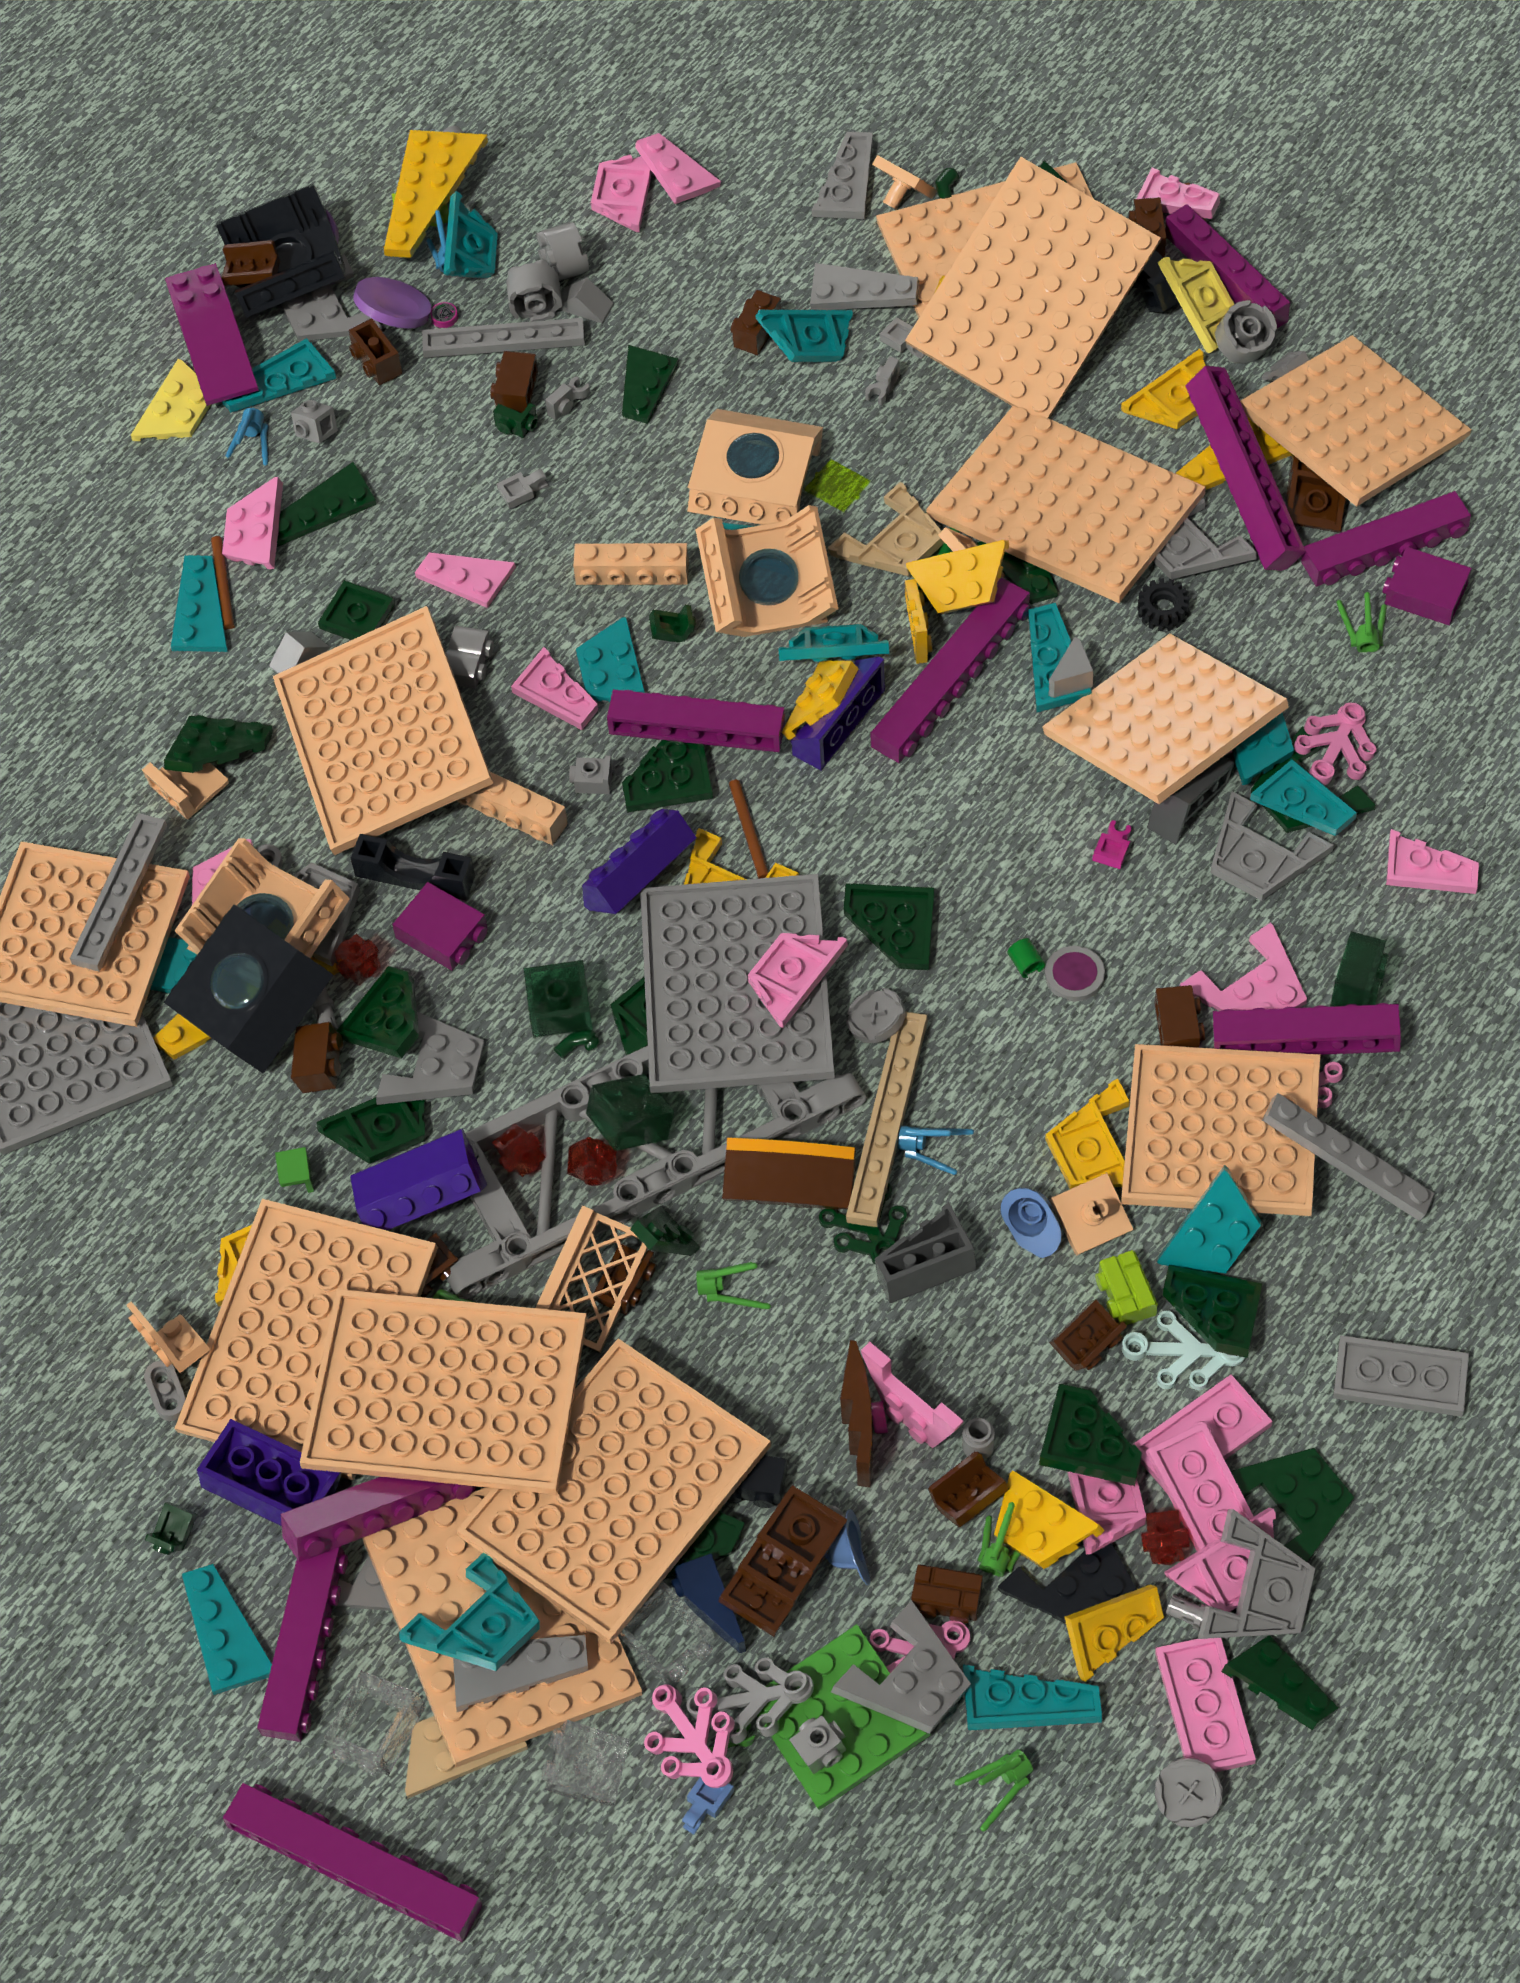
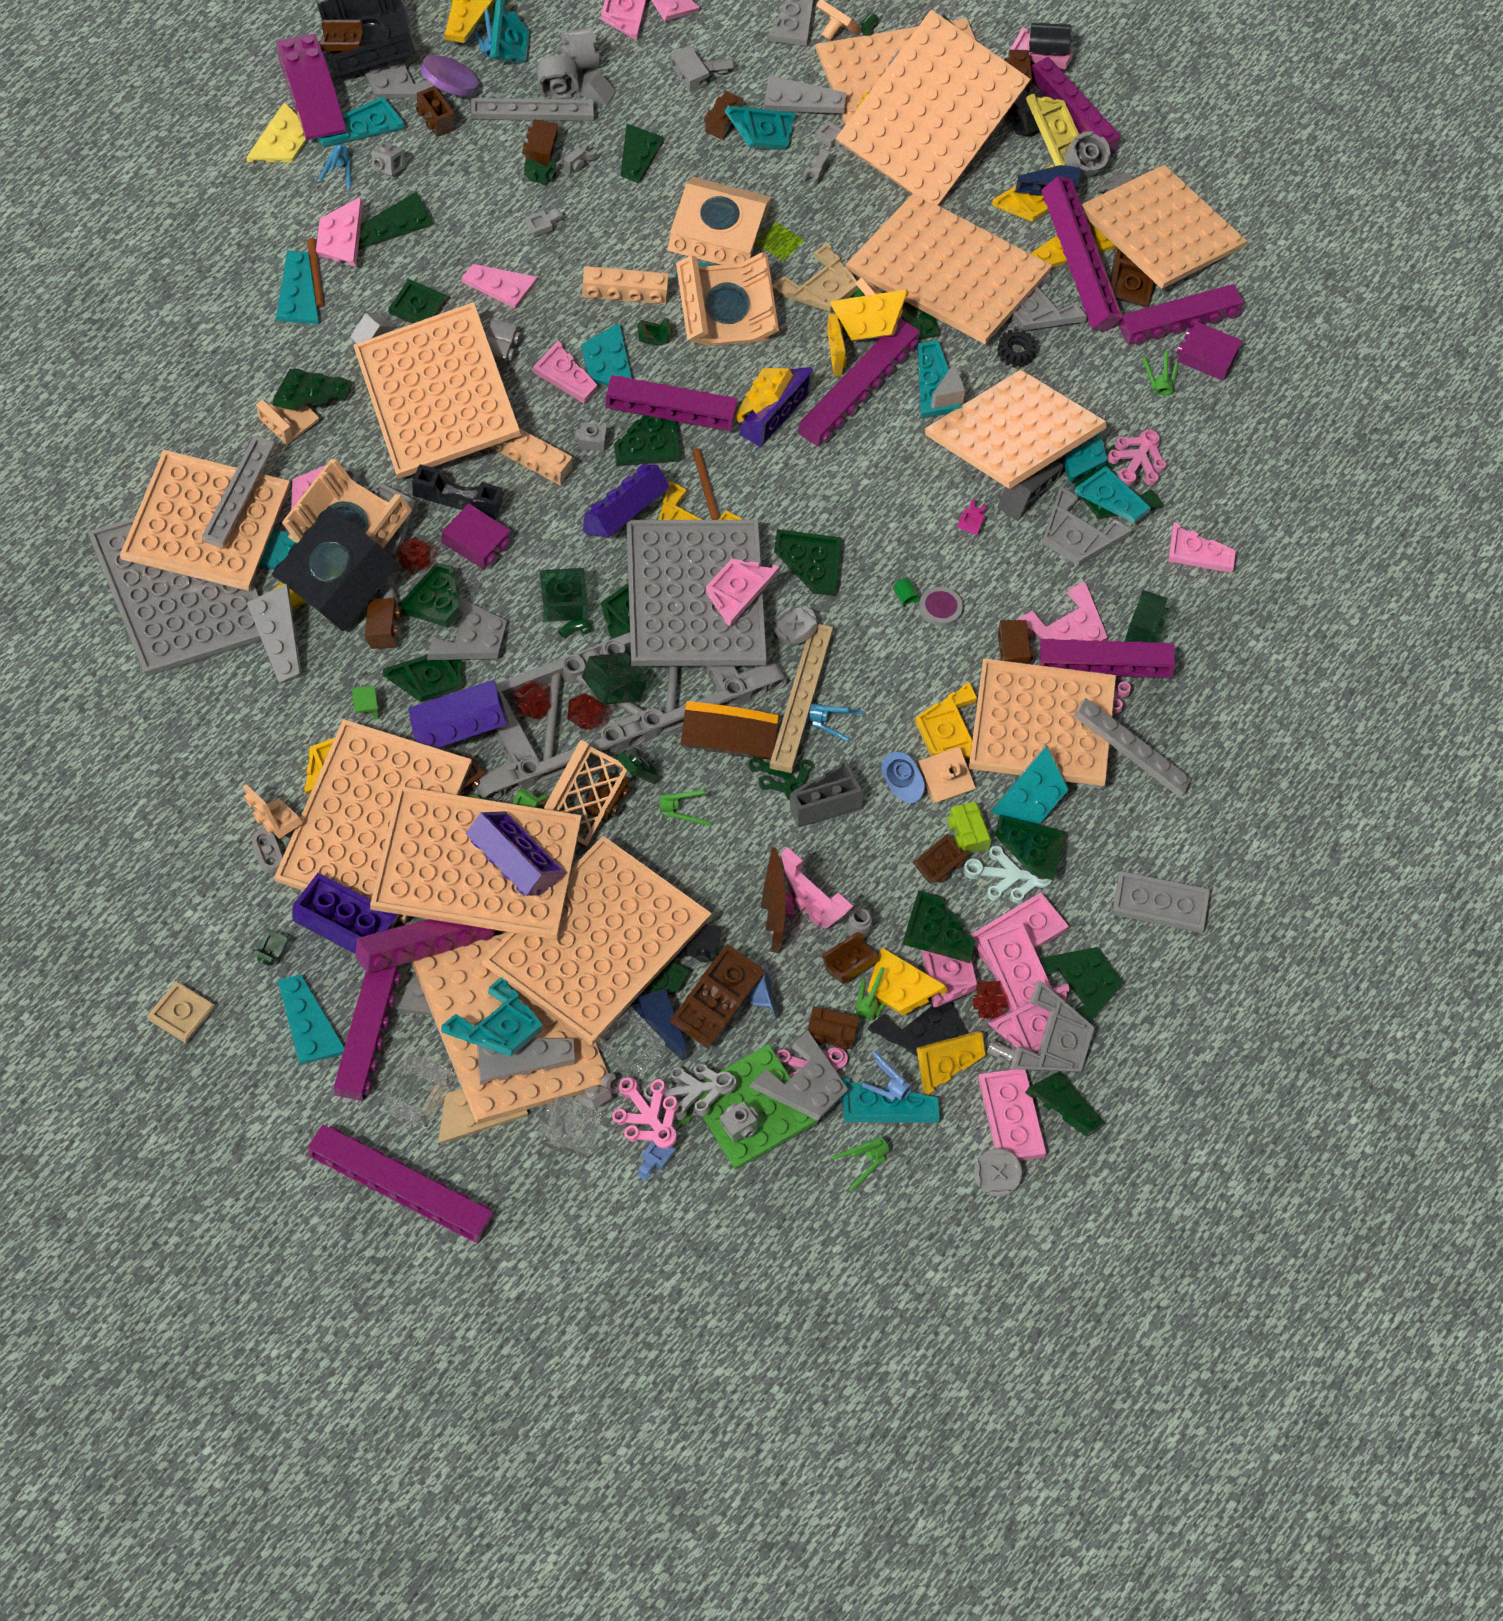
camera: 10 degrees left, 0 degrees up
(51, 1629) = (181, 1012): none -> tan plate
(172, 1077) = (276, 628): none -> light grey wing
(444, 315) = (487, 88): tile -> none
(494, 1375) = (514, 852): none -> slope
(515, 1295) = (527, 799): none -> bright green panel
(622, 1714) = (595, 1095): none -> light grey plate
(709, 264) = (689, 68): none -> light grey hinge
(750, 257) = (720, 66): none -> light grey plate
(833, 641) = (775, 354): teal wing -> none
(1041, 1675) = (898, 1086): none -> medium blue plant
(1175, 375) = (1035, 181): none -> dark blue slope
(1188, 178) = (1050, 38): none -> black brick

